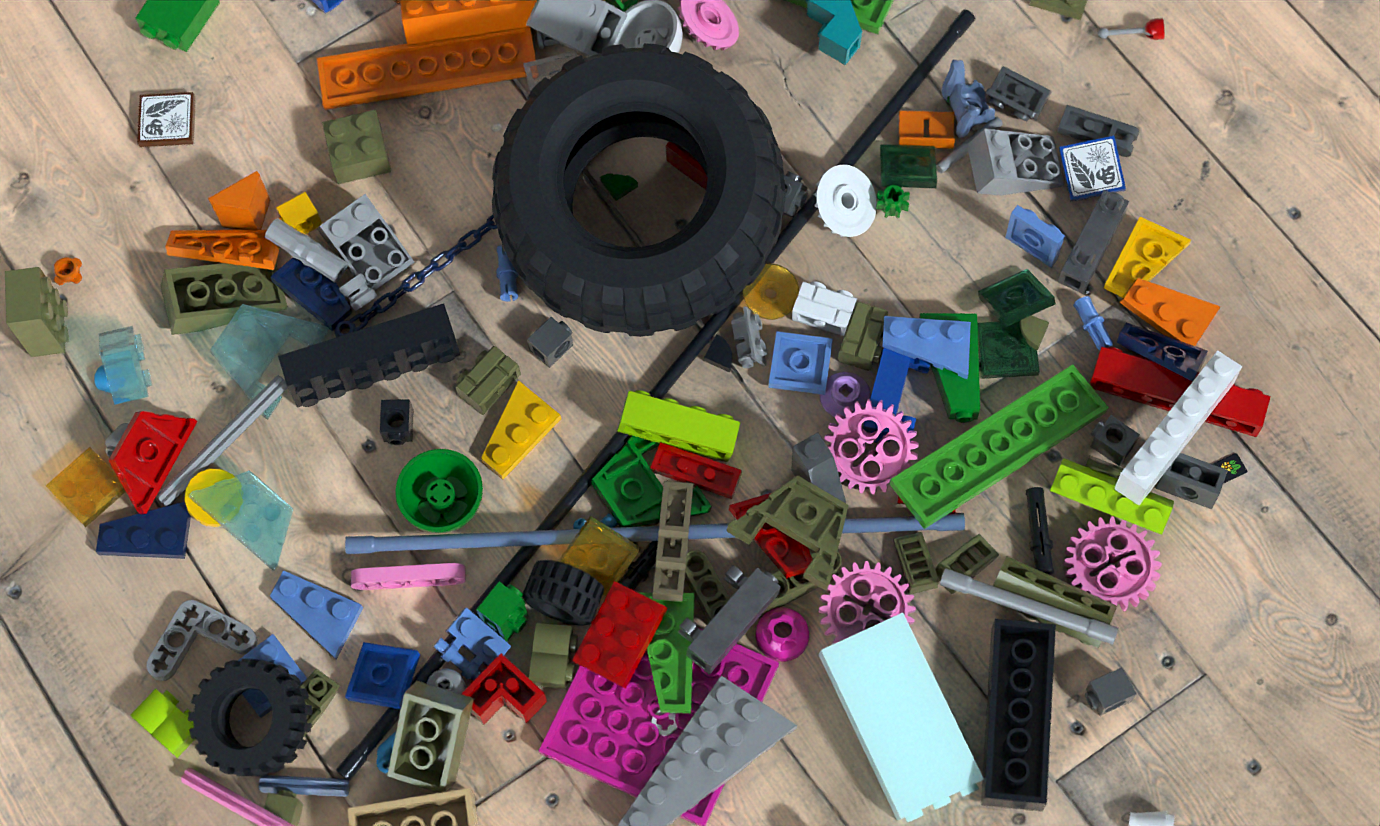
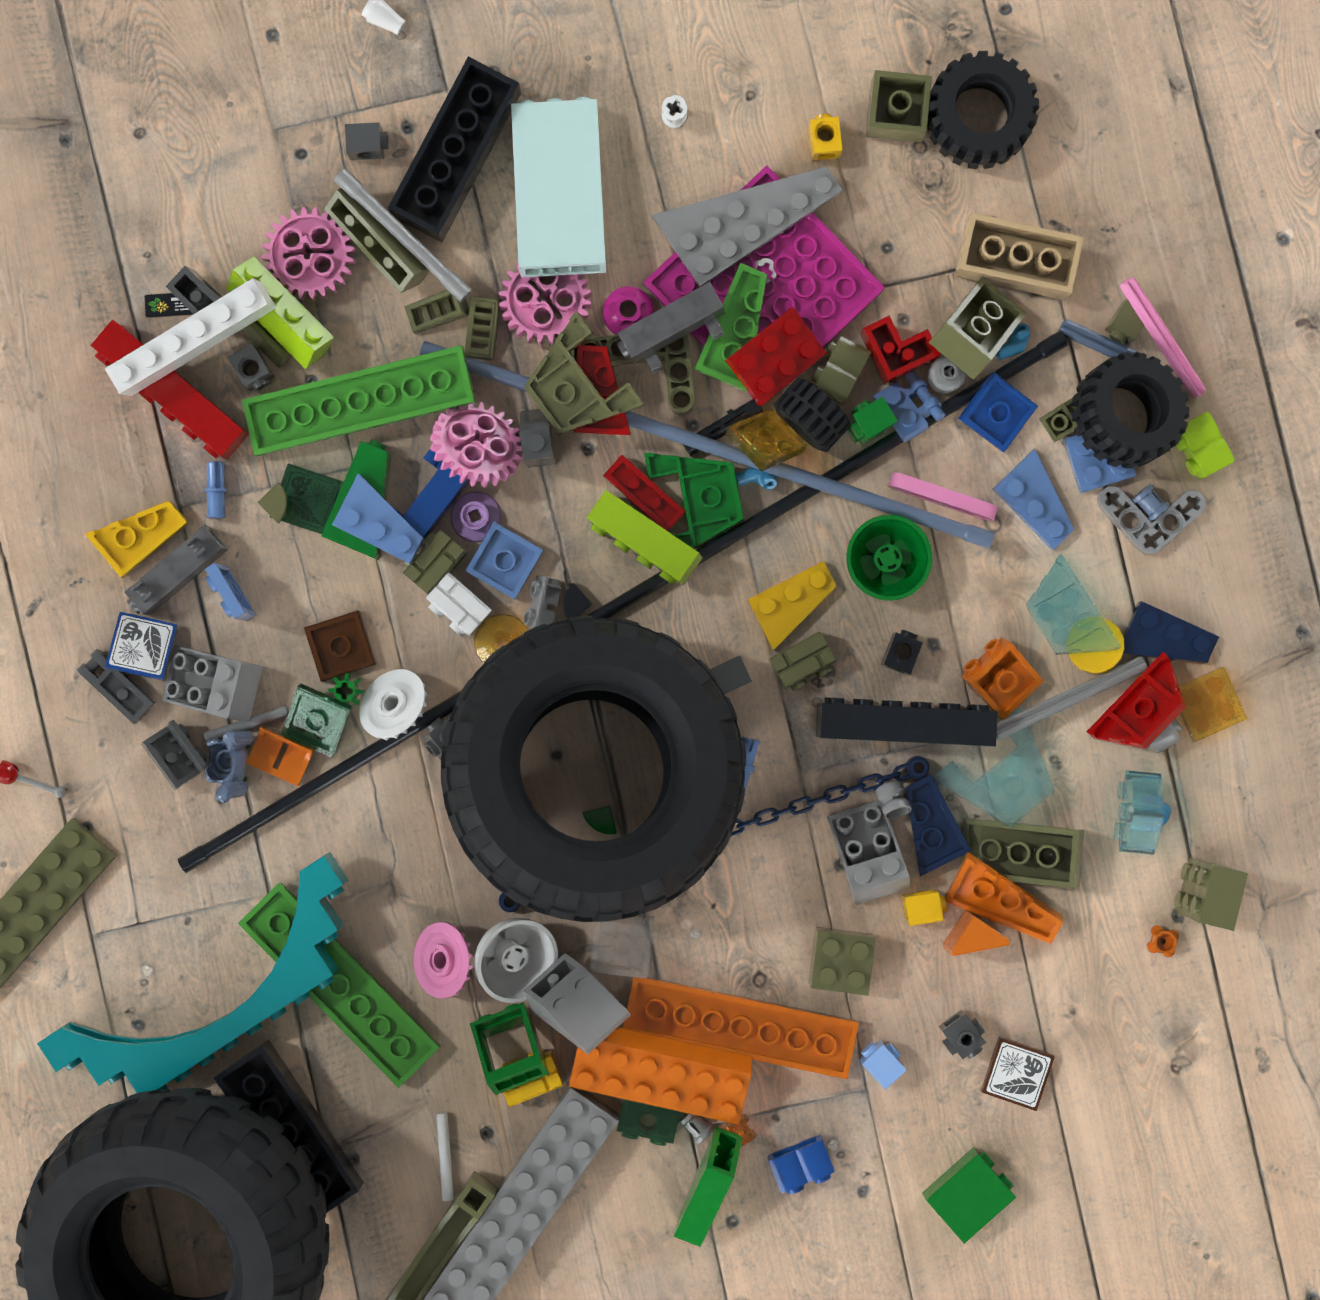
camera: 165 degrees left, 20 degrees up
(202, 649) = (1150, 502): none -> sand blue bush
(226, 126) = (958, 1026): none -> dark grey brick
(290, 81) = (882, 1062): none -> light blue brick
(294, 434) = (1001, 677): none -> orange plate
(306, 250) = (929, 860): light grey axle -> none
(672, 541) = (694, 423): dark tan slope -> none
(917, 238) = (340, 646): none -> reddish brown tile
(1016, 297) = (275, 541): clear green tile -> none
(1035, 500) = (370, 279): black pin -> none
(1166, 351) = (164, 431): dark blue wing -> none
(1170, 311) = (139, 470): orange wing -> none

